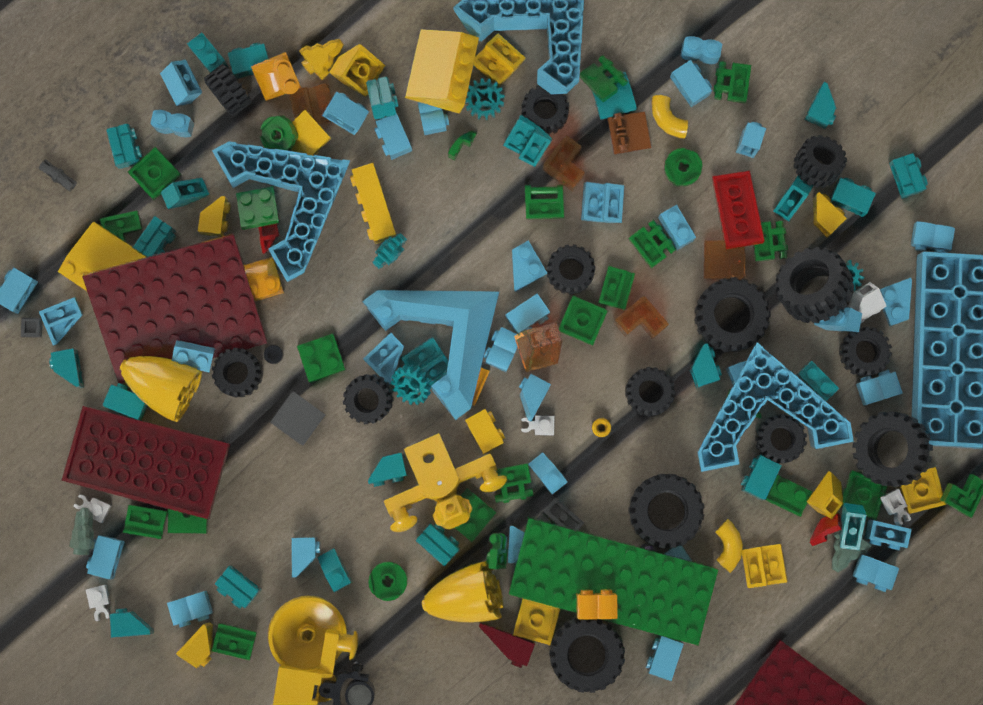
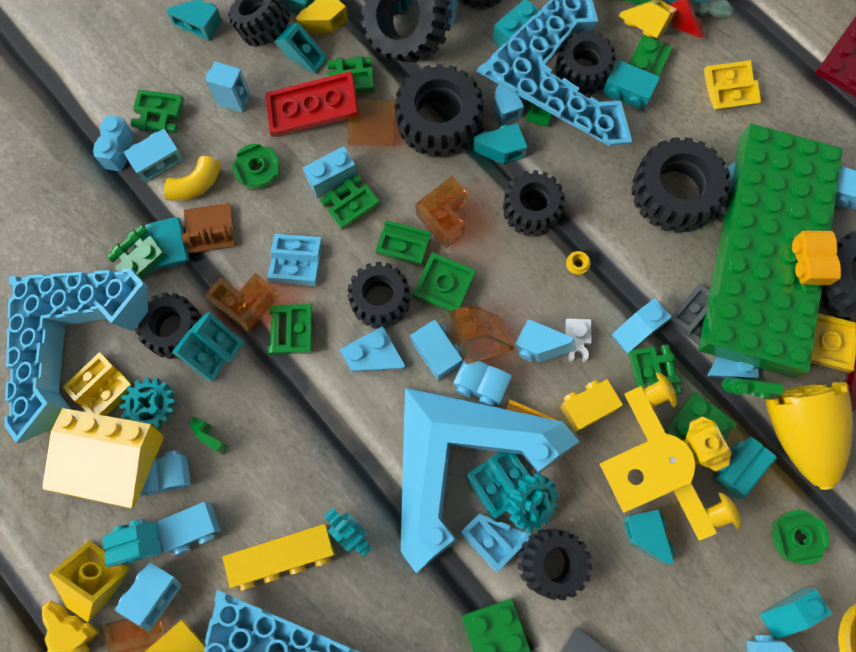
camera: 85 degrees left, 10 degrees down
(731, 545) = (713, 116): yellow cylinder -> none

